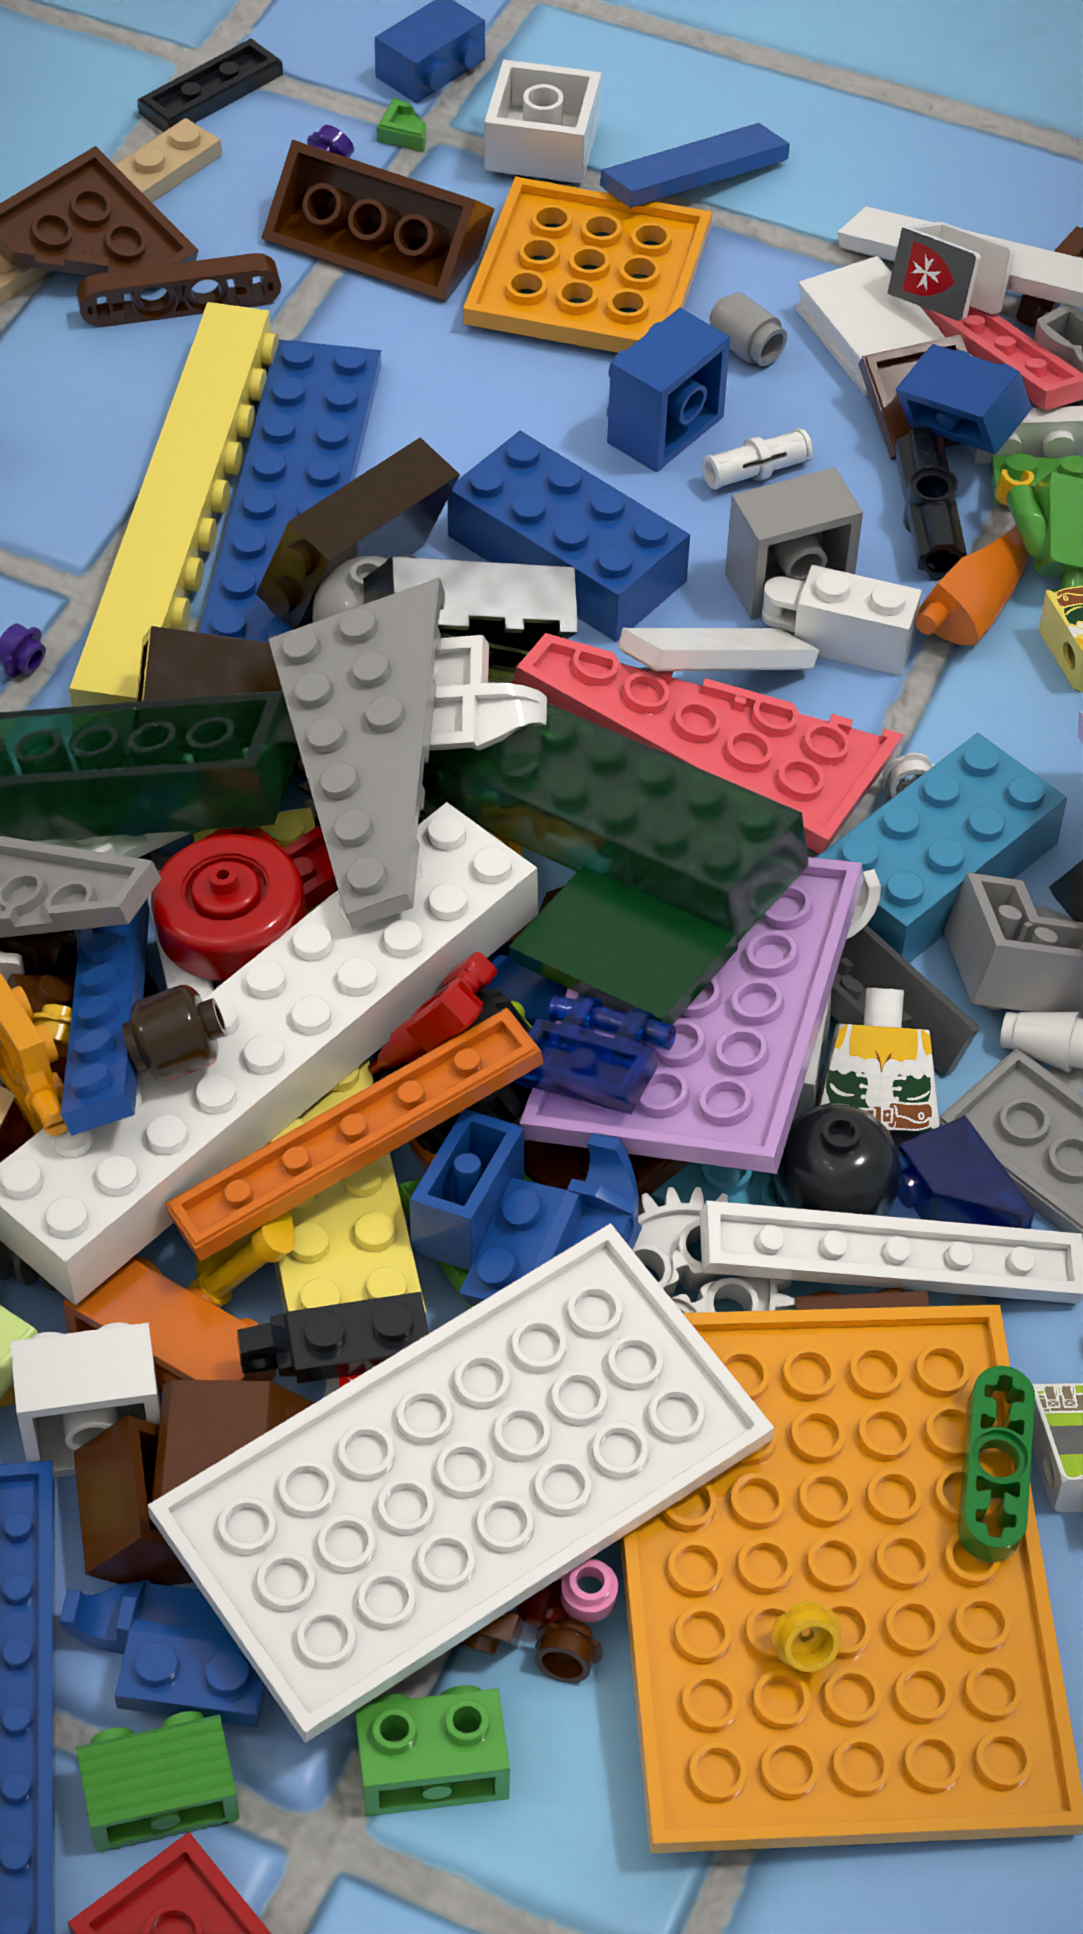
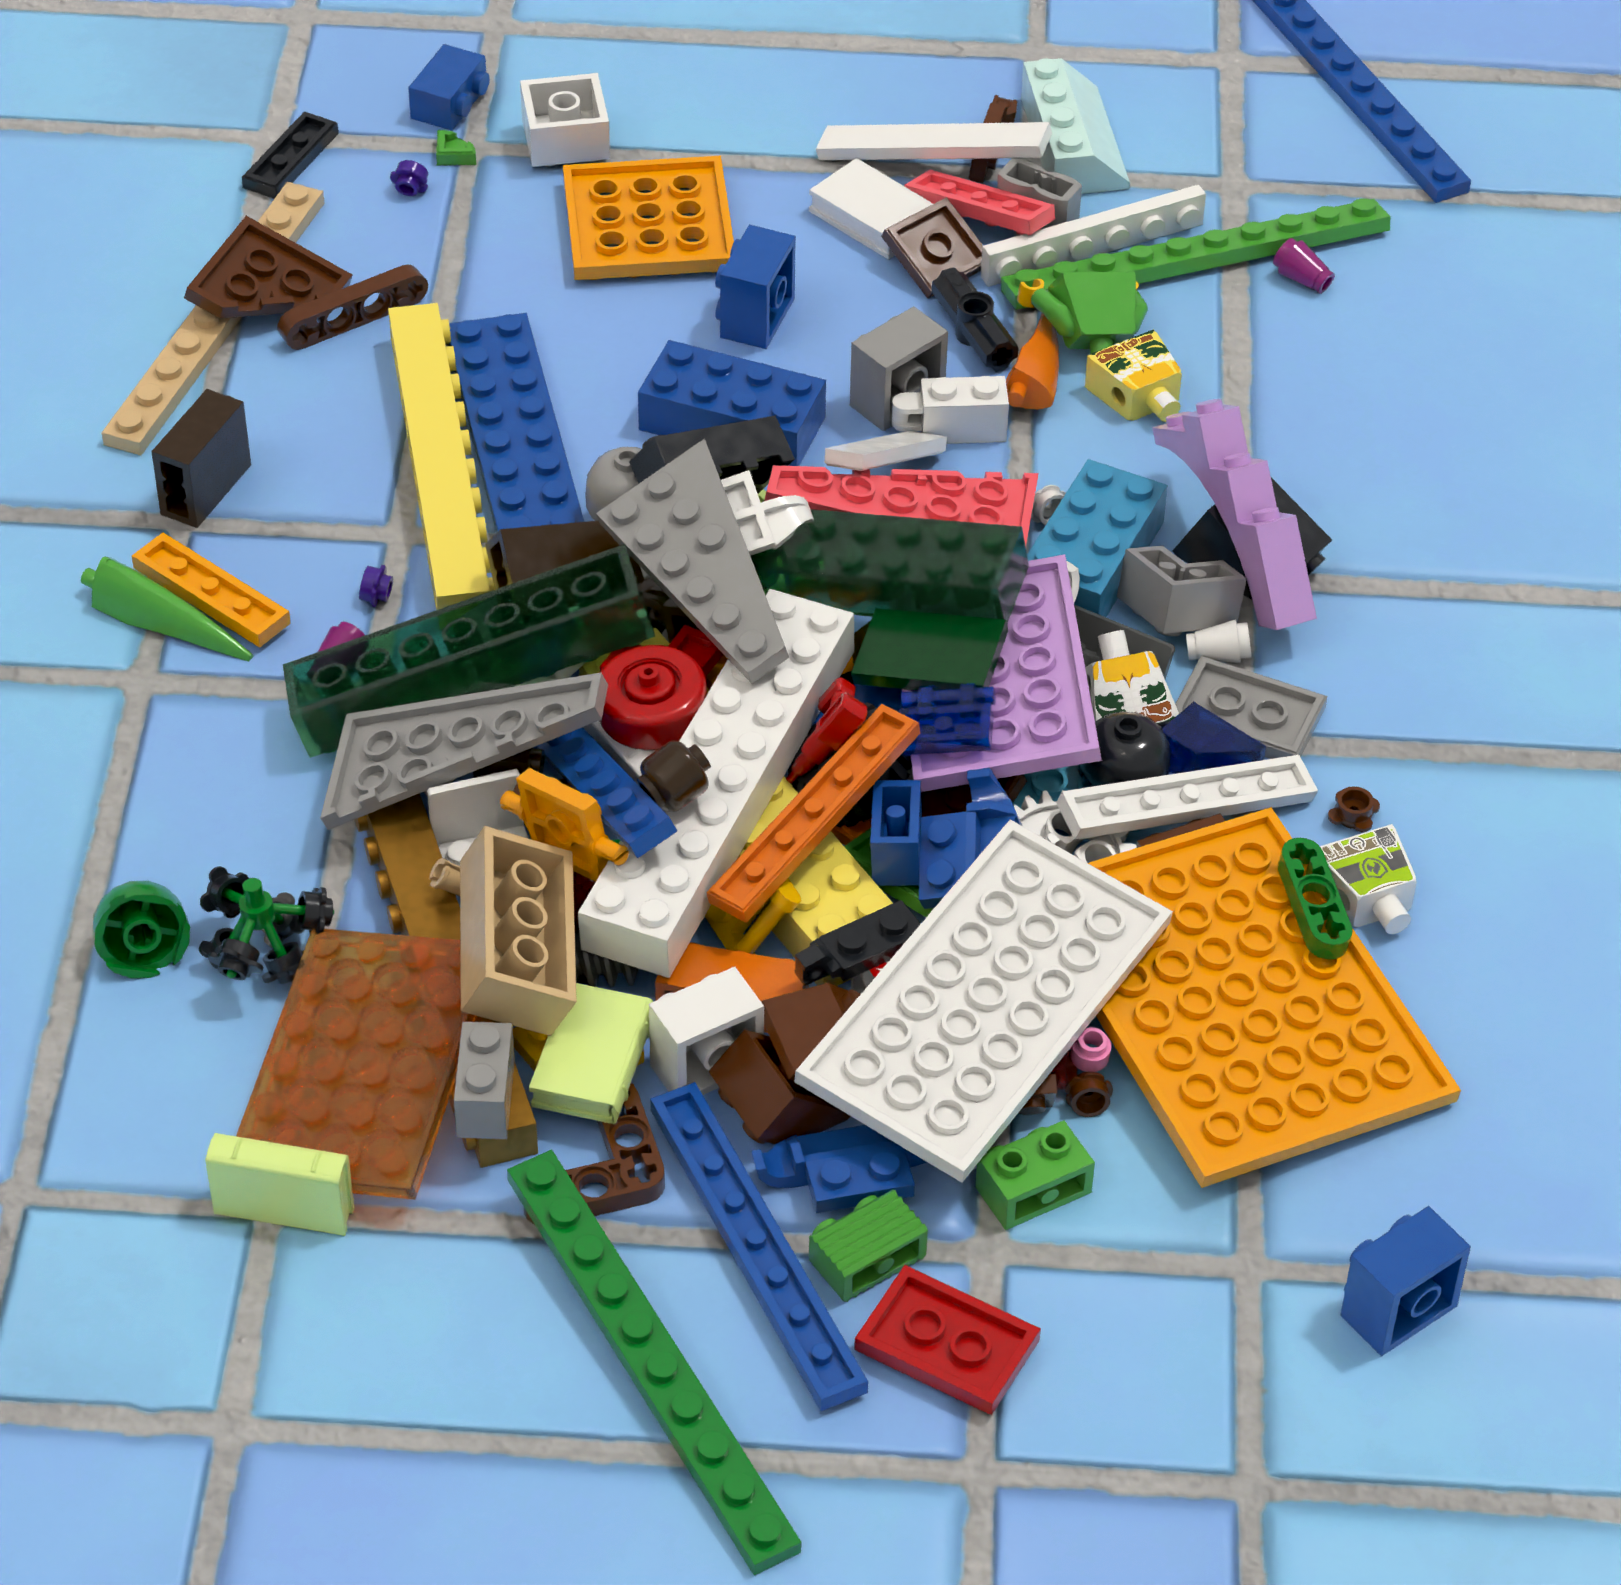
camera: 20 degrees left, 5 degrees down
(376, 221) = (475, 221): reddish brown slope -> none
(376, 514) = (595, 428): dark brown brick -> none
(694, 165) = (690, 125): blue tile -> none
(752, 329) = (793, 224): light grey brick -> none
(757, 458) = (837, 320): white pin -> none
(813, 1650) = (1256, 1031): yellow plate -> none
(950, 270) = (921, 153): piece -> none
(964, 398) = (973, 239): blue brick -> none

